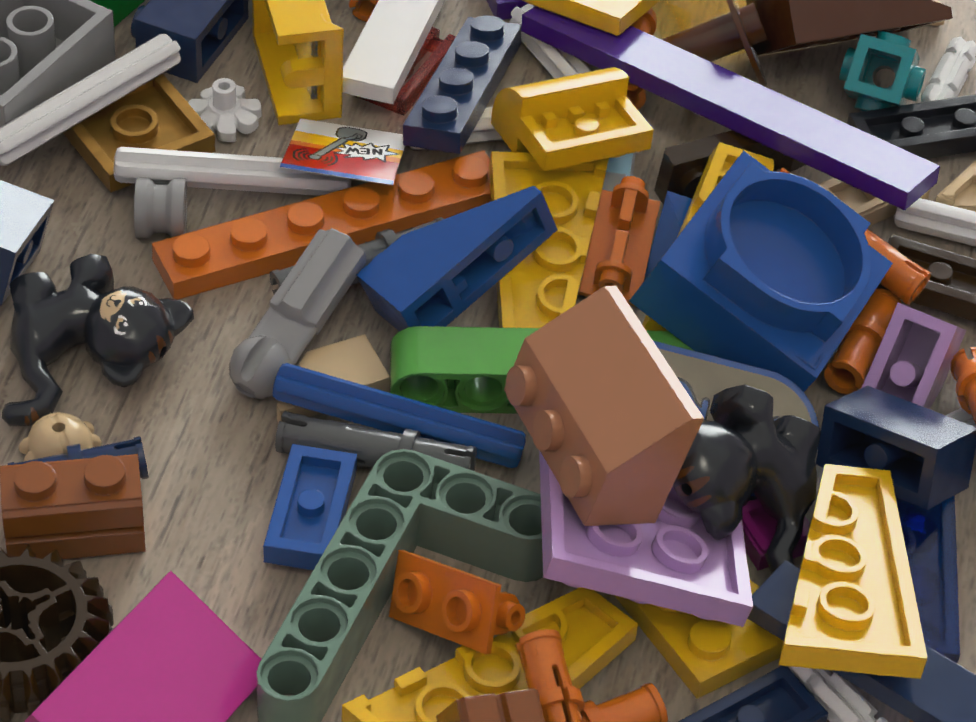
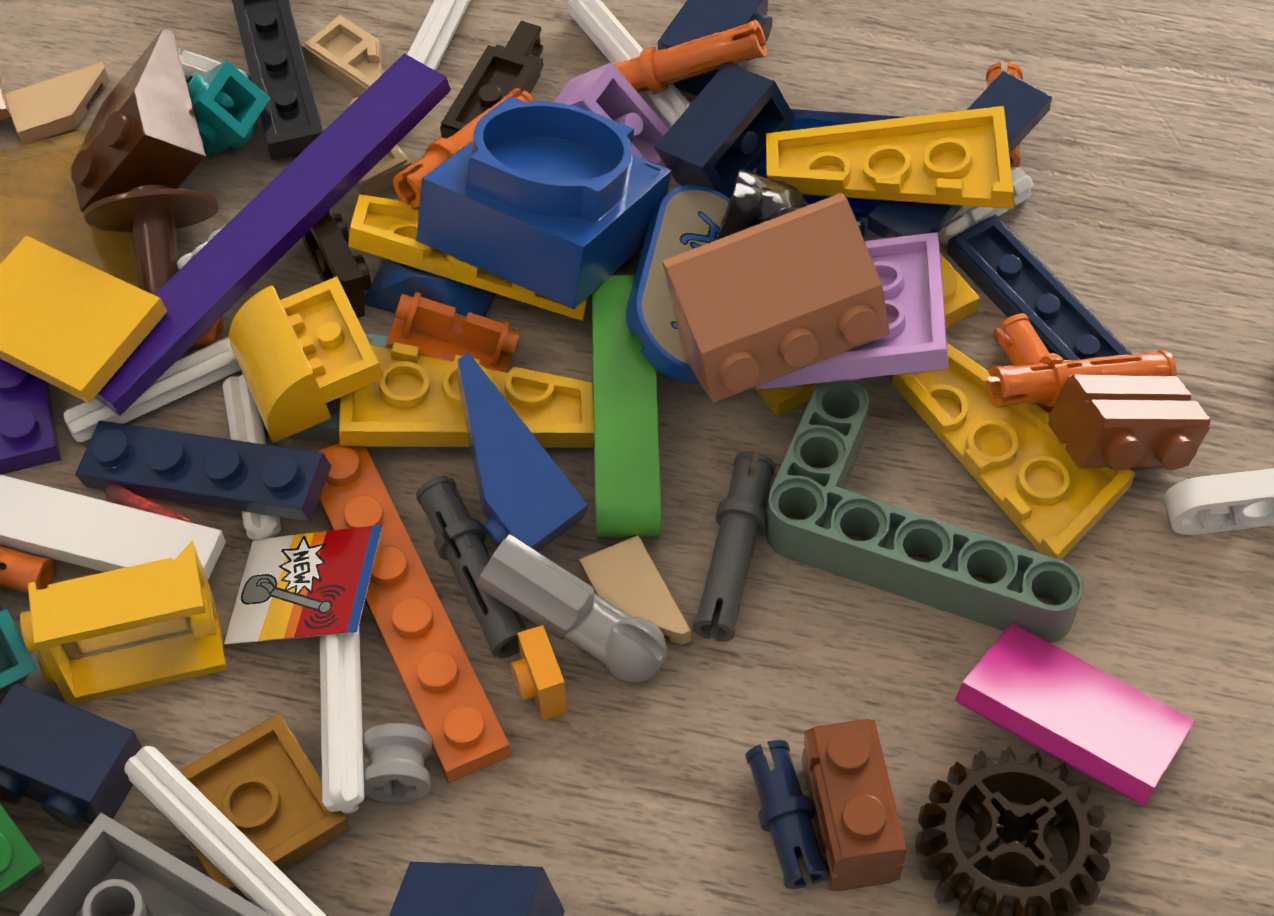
camera: 85 degrees left, 10 degrees up
(54, 433) = (736, 858): tan animal -> none
(119, 327) = (591, 786): black animal -> none
(227, 110) = (211, 718): white plant -> none
(238, 300) = (539, 674): none -> light orange plate
(309, 505) = (815, 597): blue plate -> none
(396, 413) = (694, 526): blue axle -> none
(452, 603) = (946, 459): orange hinge -> none

